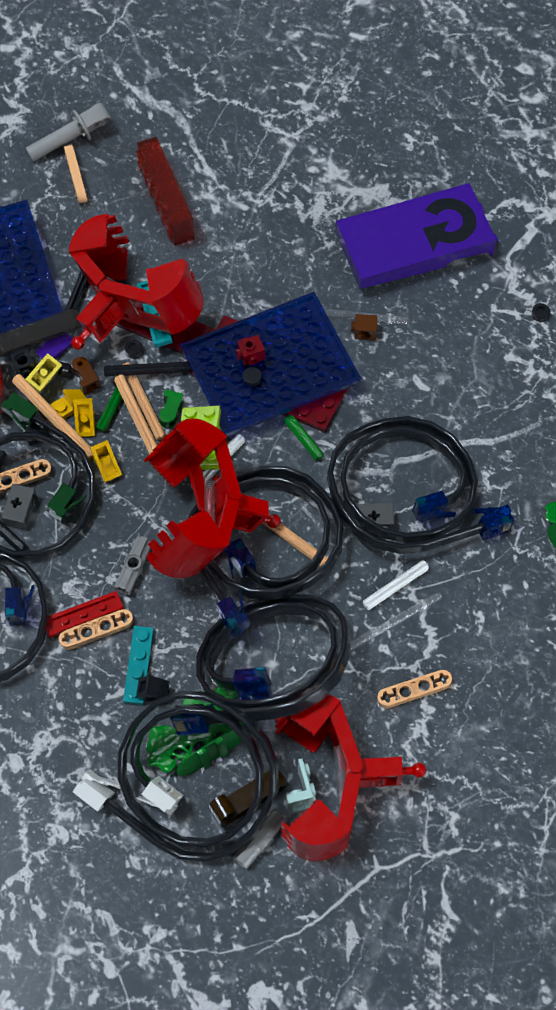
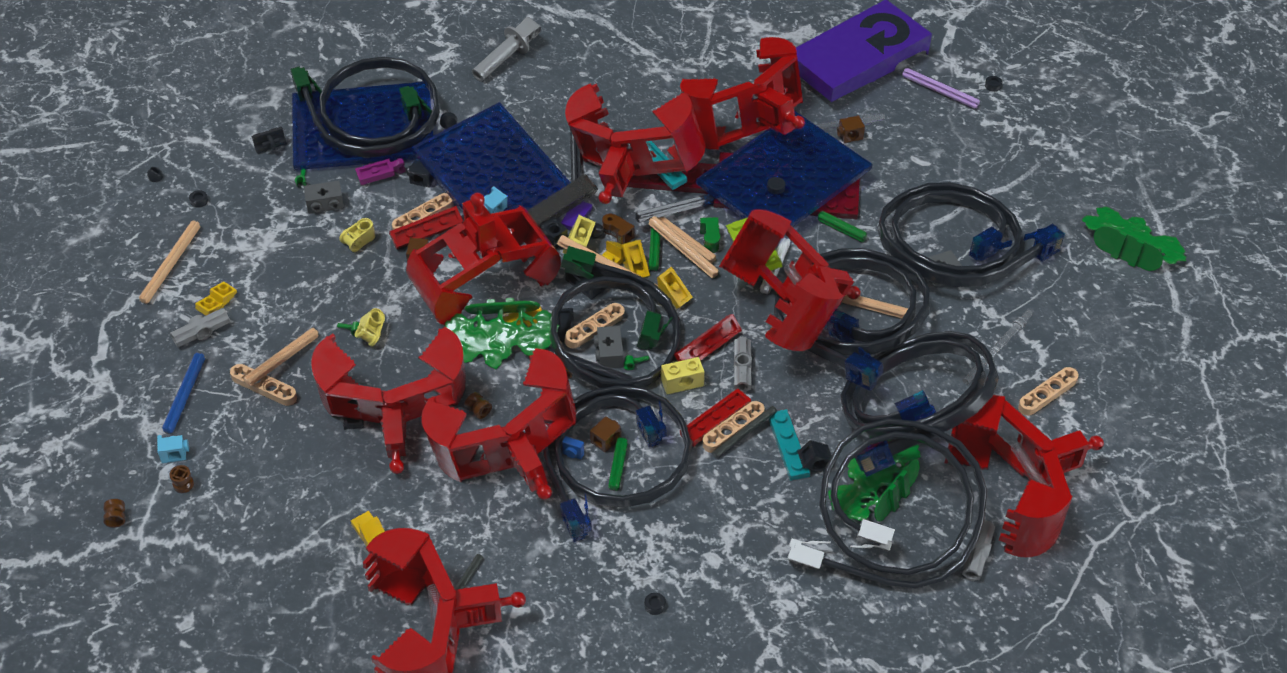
camera: 20 degrees left, 15 degrees down
(31, 527) = (630, 361): none -> green hand
(71, 560) = (682, 375): none -> light yellow brick
(75, 174) = (527, 79): light nougat beam -> none
(102, 639) = (744, 432): none -> pearl dark grey bar
(112, 530) = (710, 340): none -> red plate
(134, 349) = (651, 199): black tile -> none
(165, 191) = (620, 70): clear red brick -> none
(237, 804) = (941, 528): dark brown beam -> none
(250, 350) = (766, 163): dark red brick -> none
(279, 283) = (776, 90): none -> red piece
(298, 799) = (1000, 491): light aqua bracket -> none
(395, 585) = (987, 313): white axle -> none
(482, 302) = (940, 88): none -> lavender axle

